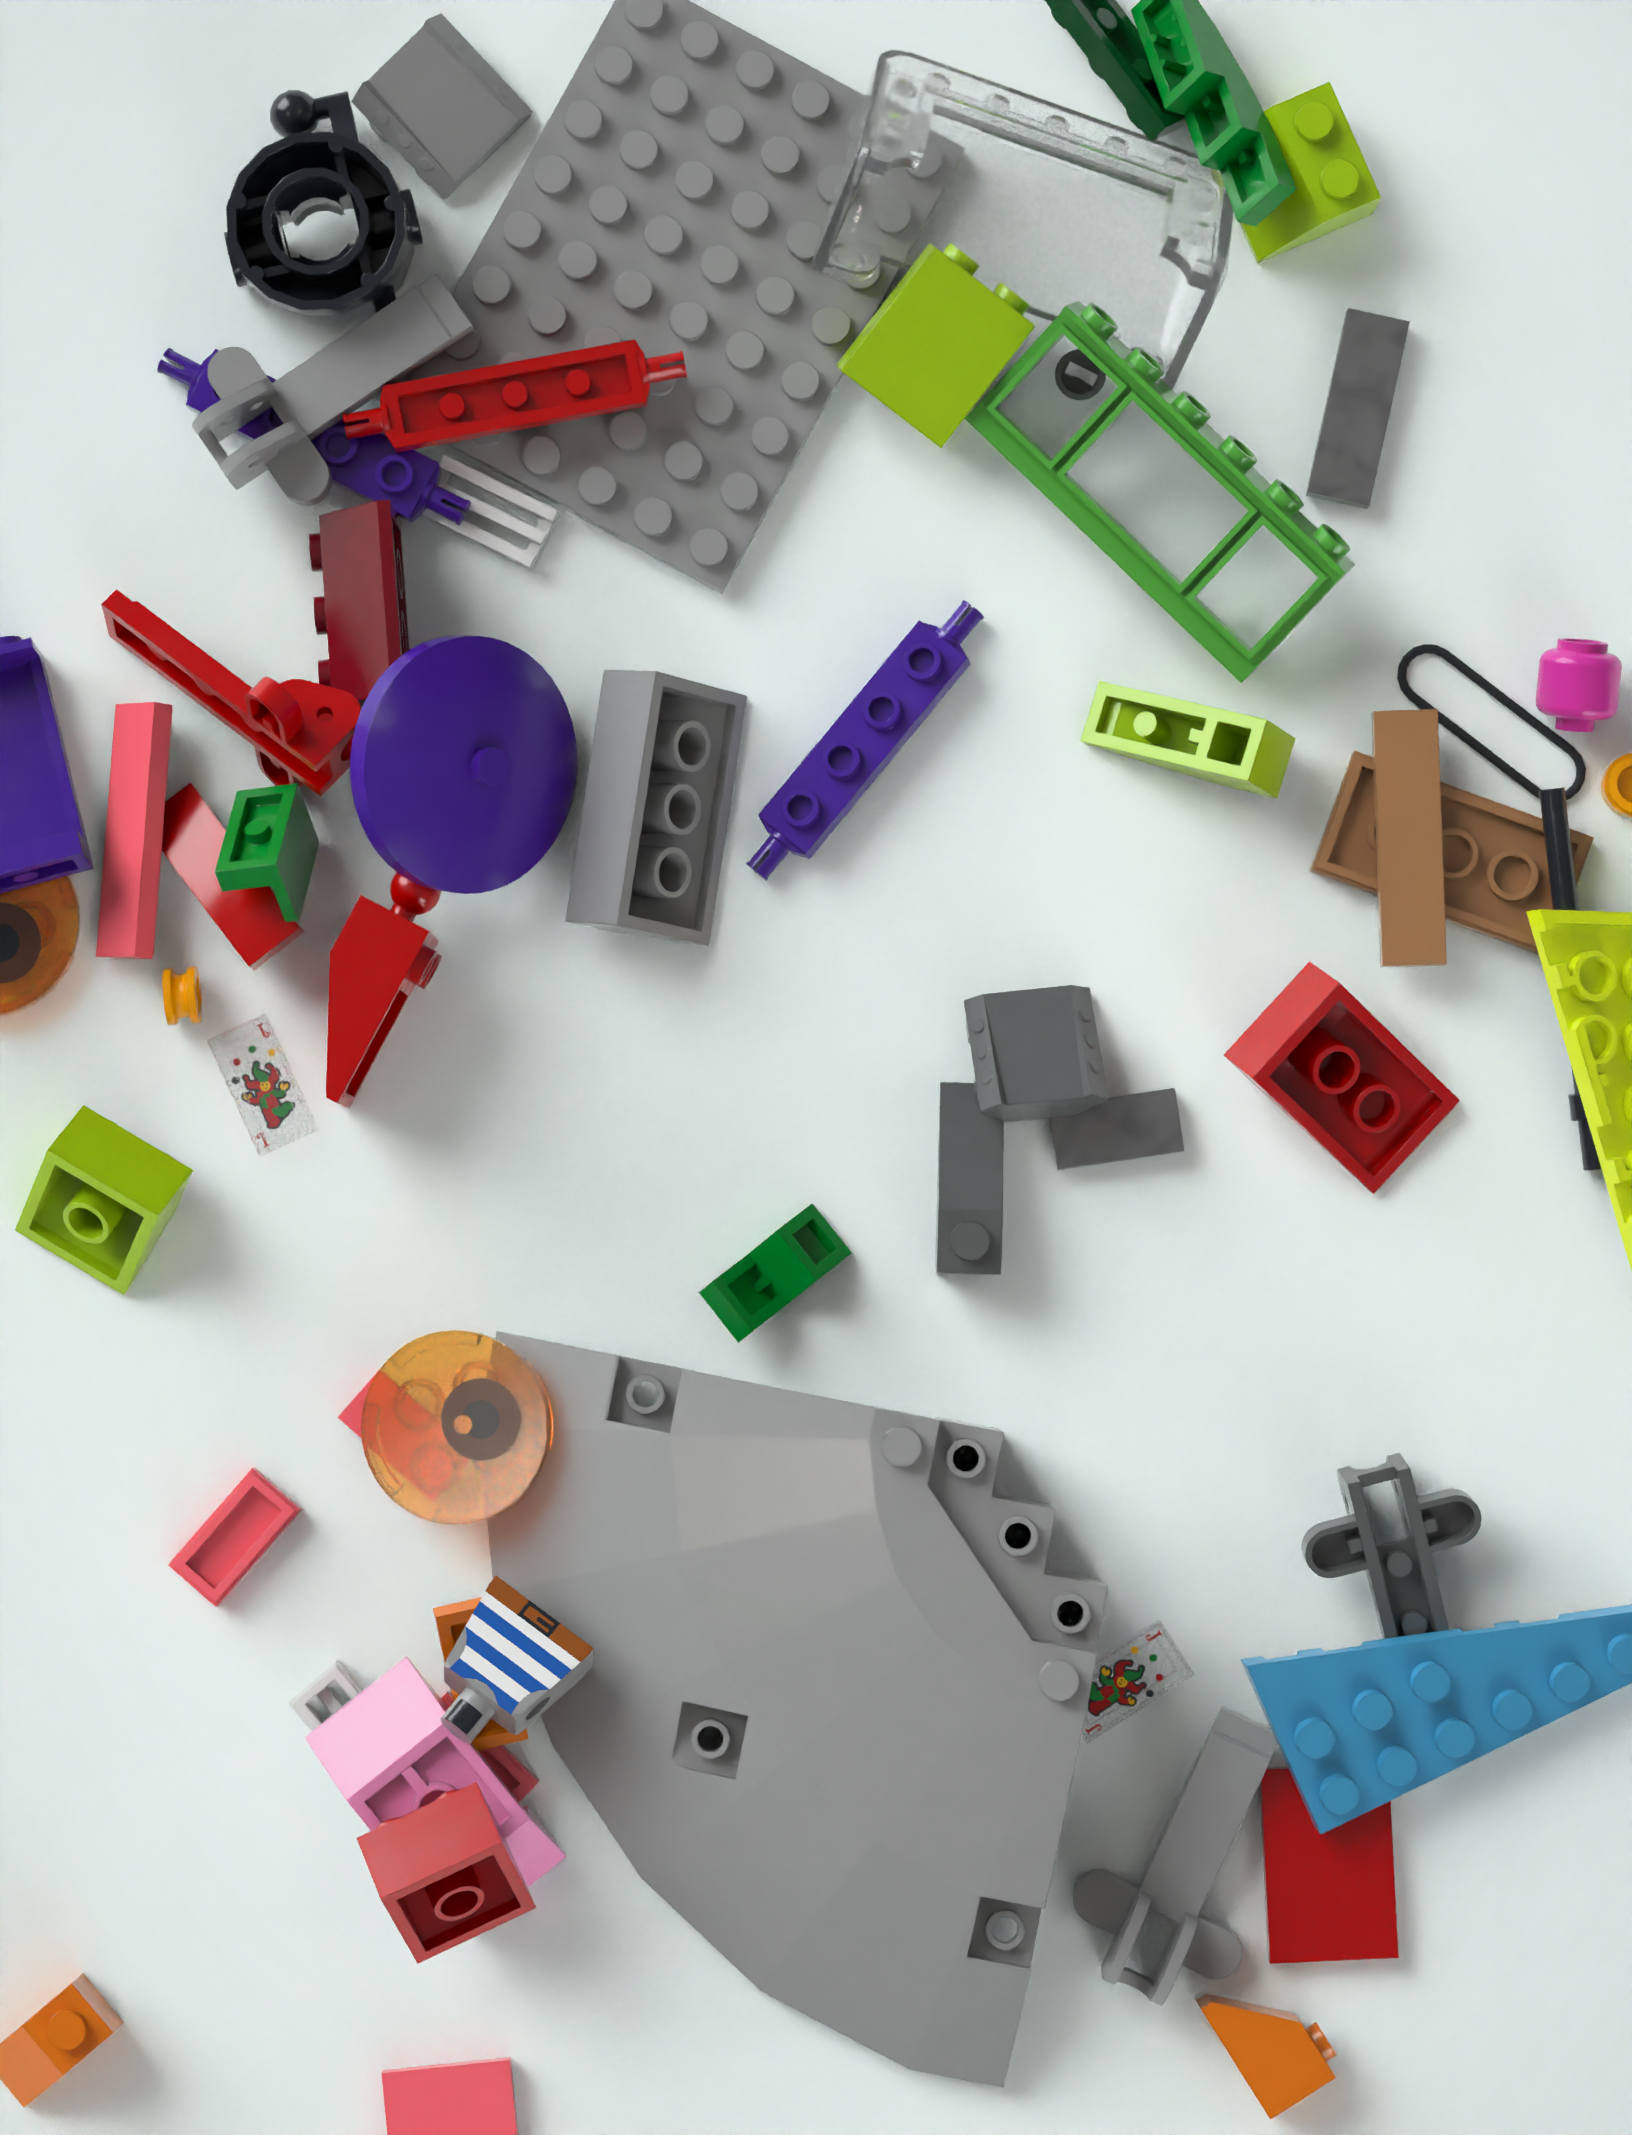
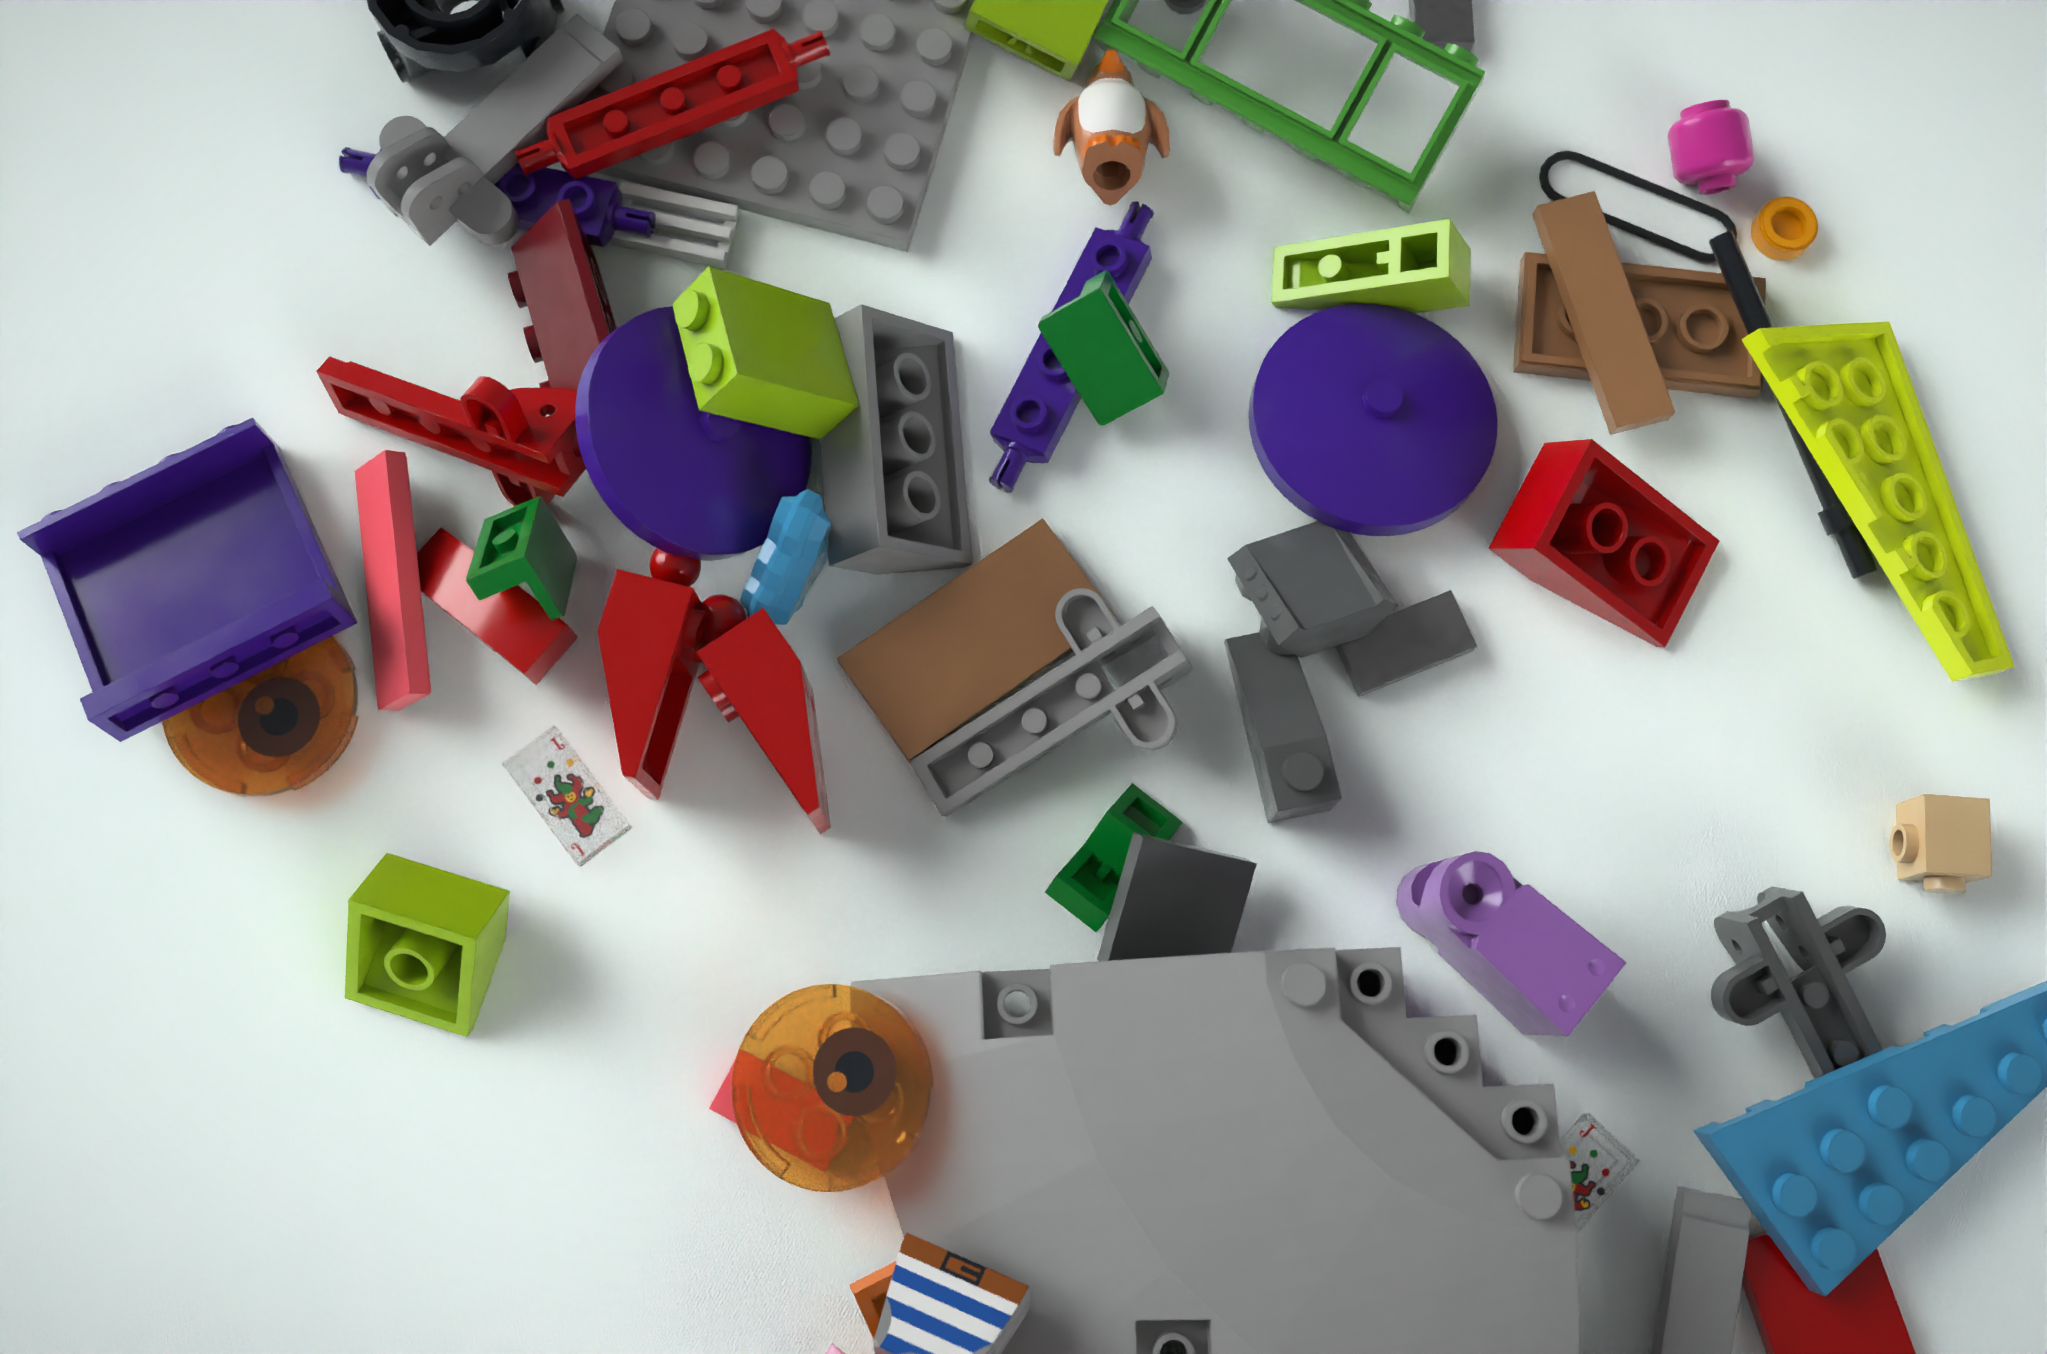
camera: 15 degrees left, 10 degrees down
(182, 995) = (468, 725): light orange bush -> none
(235, 1537) = (628, 1260): coral tile -> none
(479, 1042) = (764, 684): none -> red slope
(522, 917) = (789, 558): none -> dark azure rock
(549, 705) = (764, 354): none -> lime brick
(694, 1025) = (967, 642): none -> medium nougat tile
(758, 1114) = (1060, 705): none -> light grey piece
(819, 1336) = (1175, 901): none -> dark grey tile
(894, 765) = (1105, 350): none -> green panel
(958, 522) = (1111, 130): none -> nougat animal
(1119, 1445) = (1508, 942): none -> medium lavender piece
(1145, 893) = (1372, 419): none -> dark purple dish
(1575, 1451) = (1942, 842): none -> tan brick

